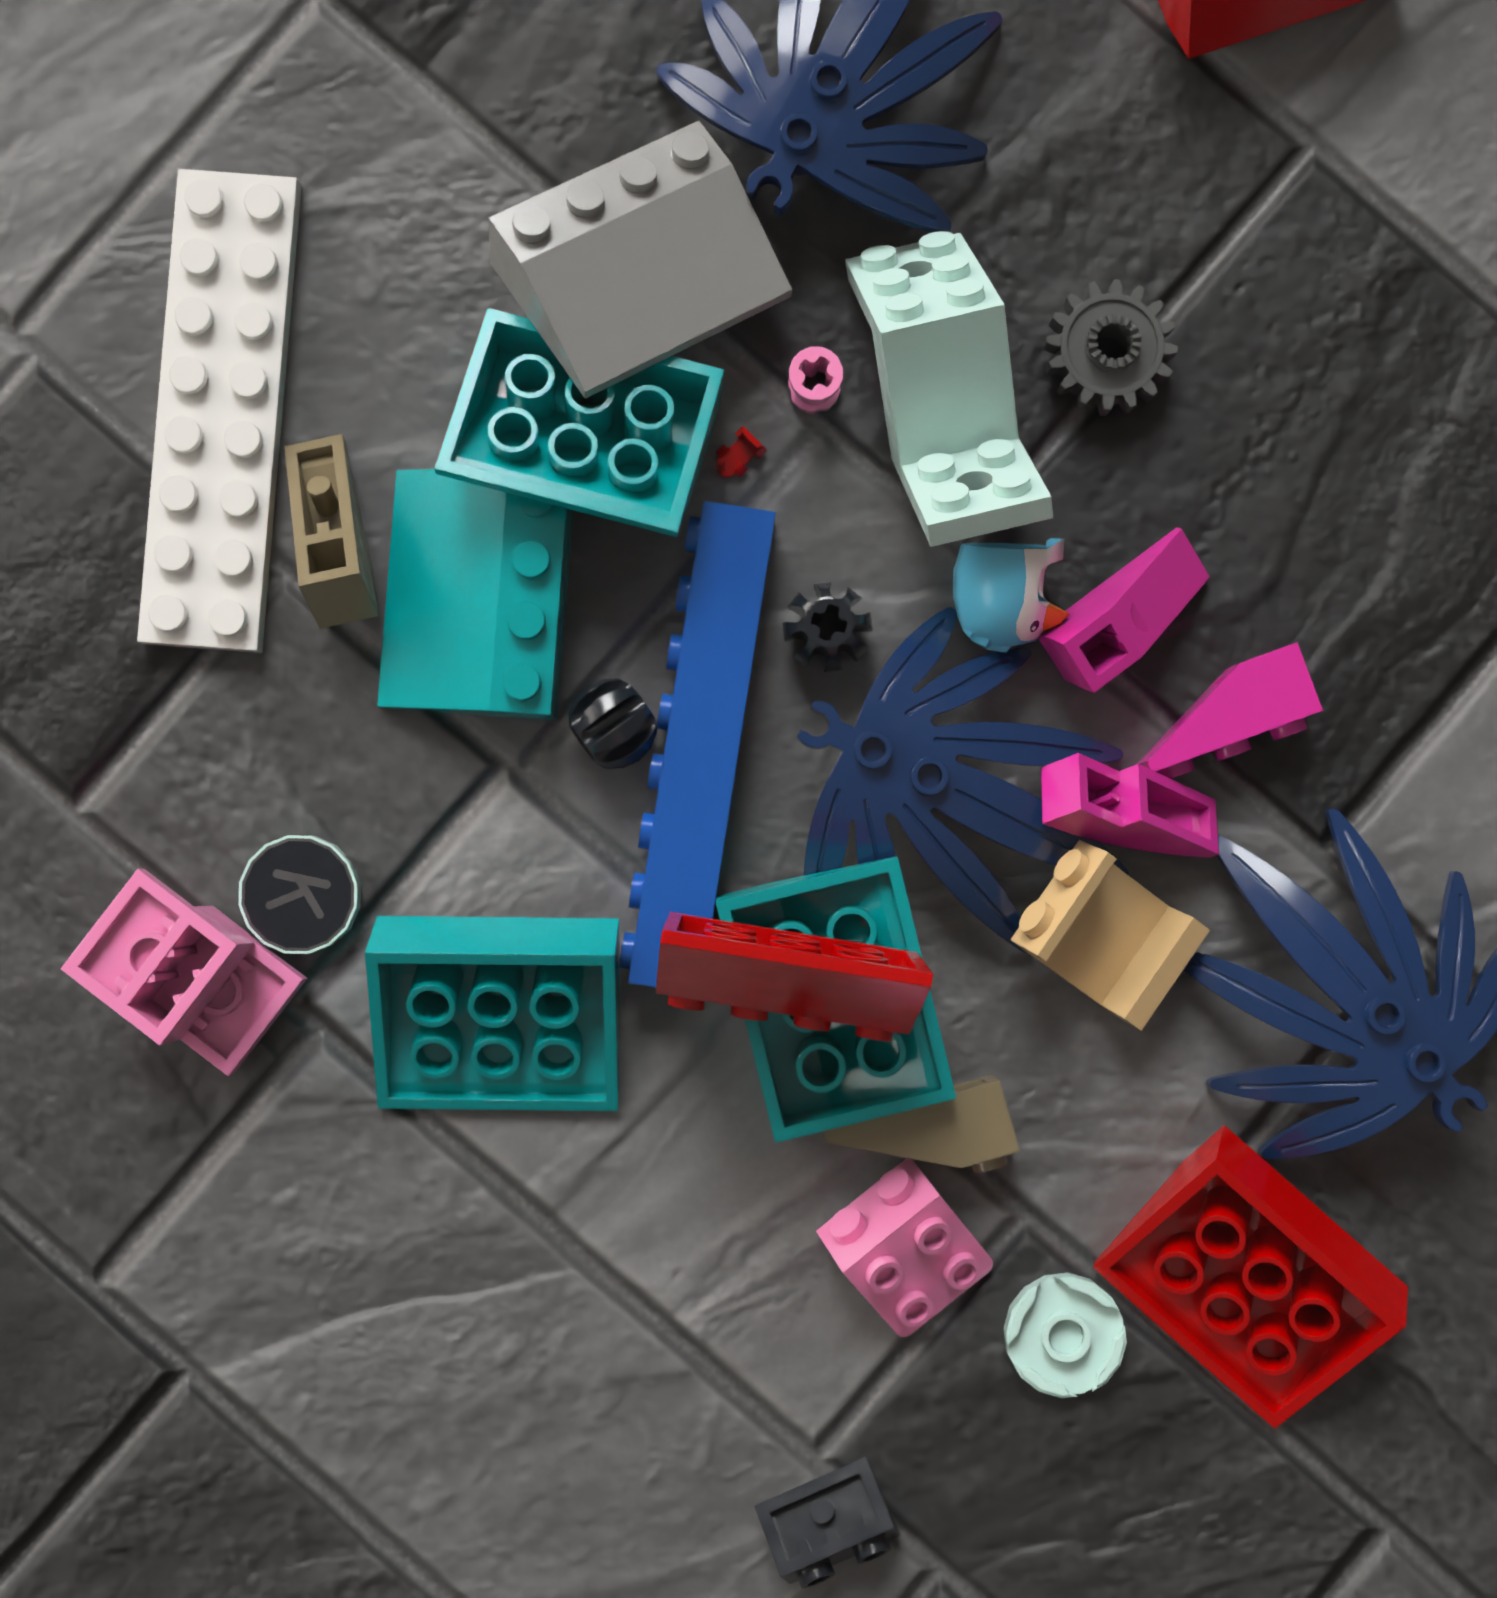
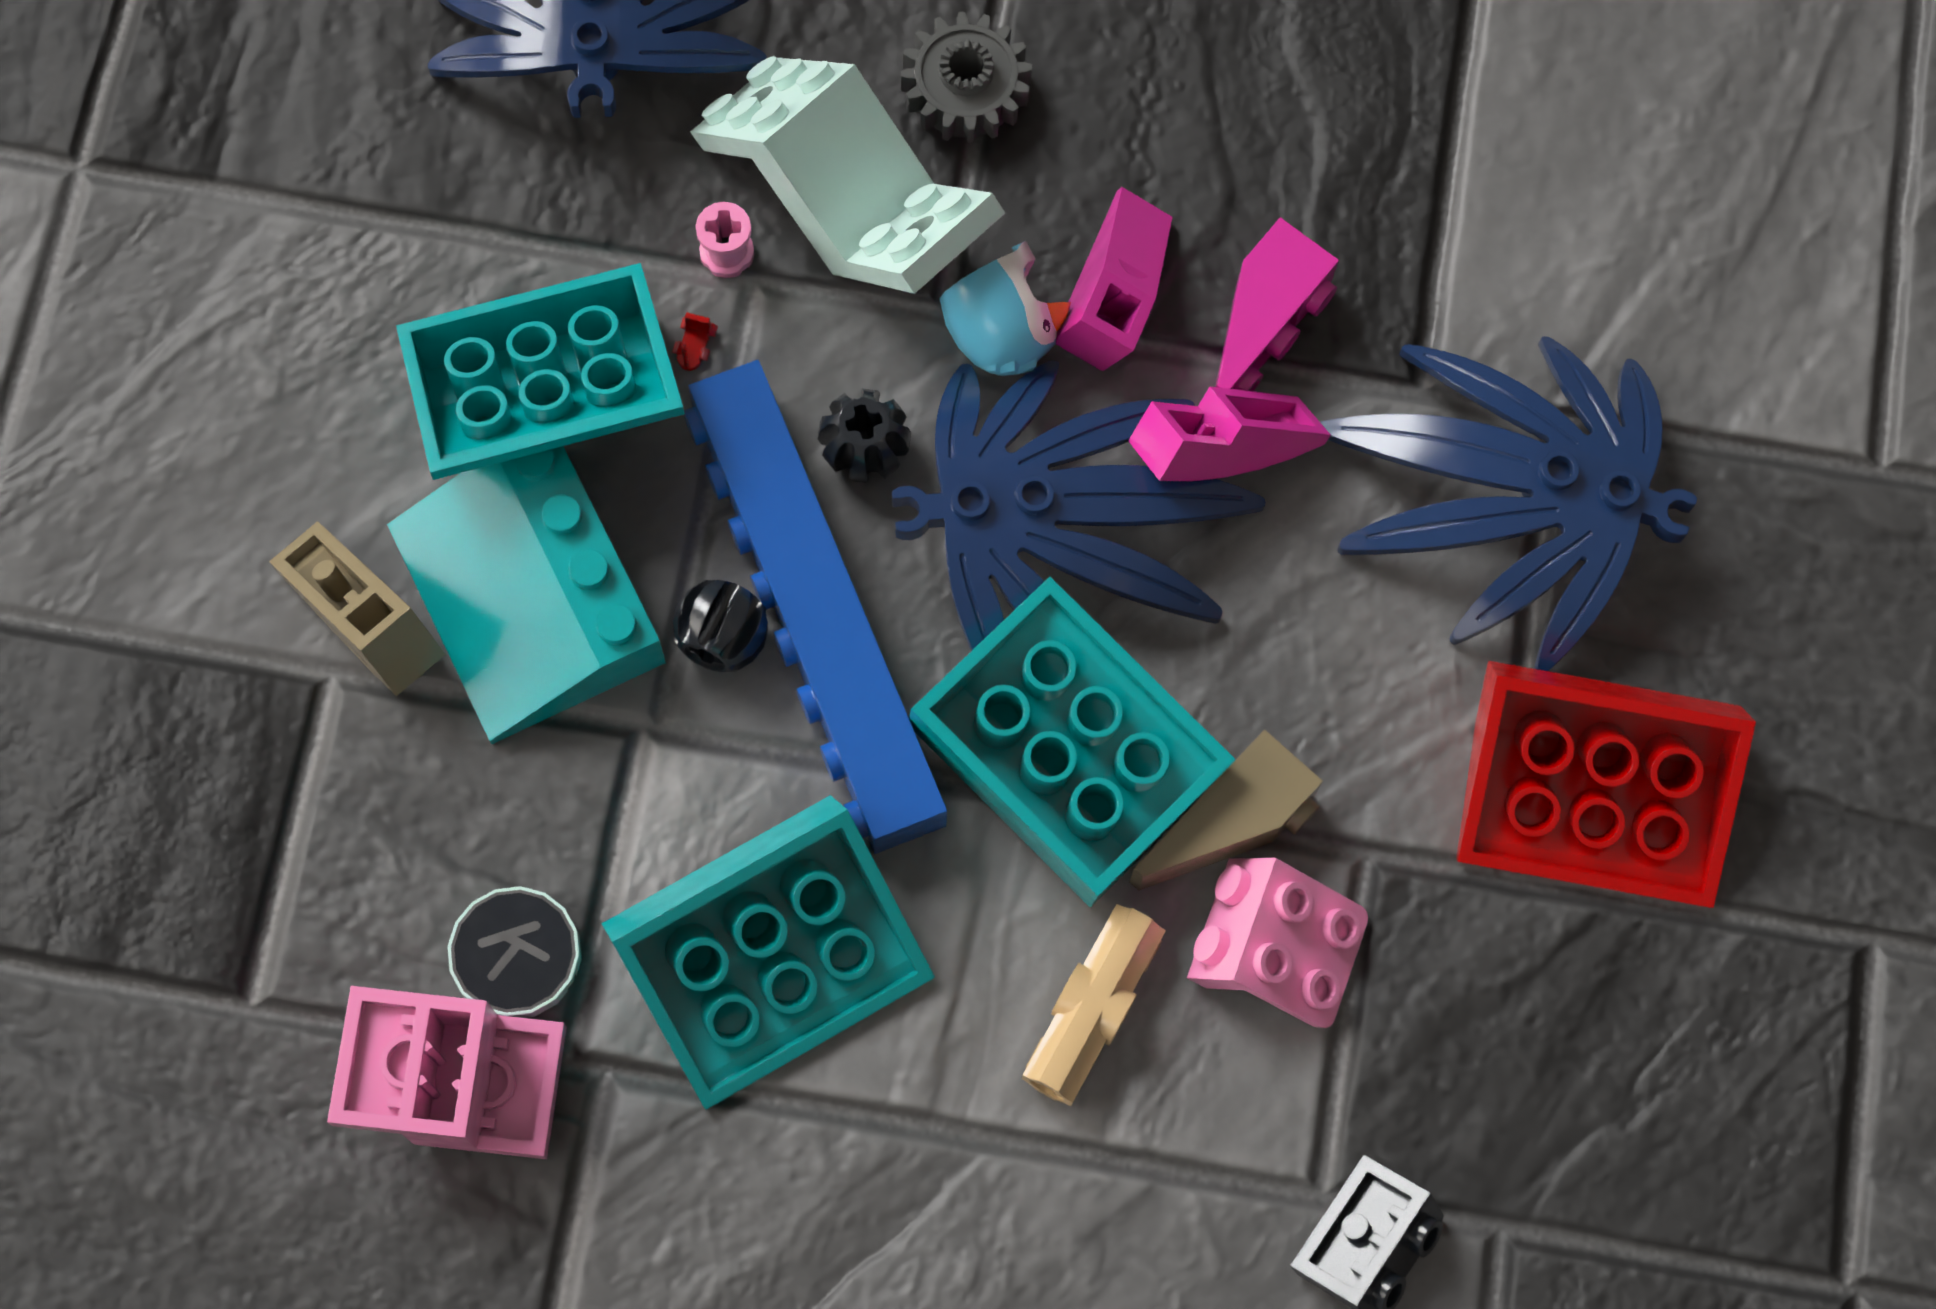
camera: 30 degrees left, 15 degrees down
(219, 411) = (192, 569): white plate -> none
(637, 258) = (506, 214): light grey slope -> none
(726, 1212) = (1093, 1004): none -> tan piece
(791, 975) = (1018, 711): red slope -> none
(1064, 1335) = (1472, 937): light aqua tile -> none
(1108, 935) = (1278, 554): tan panel -> none

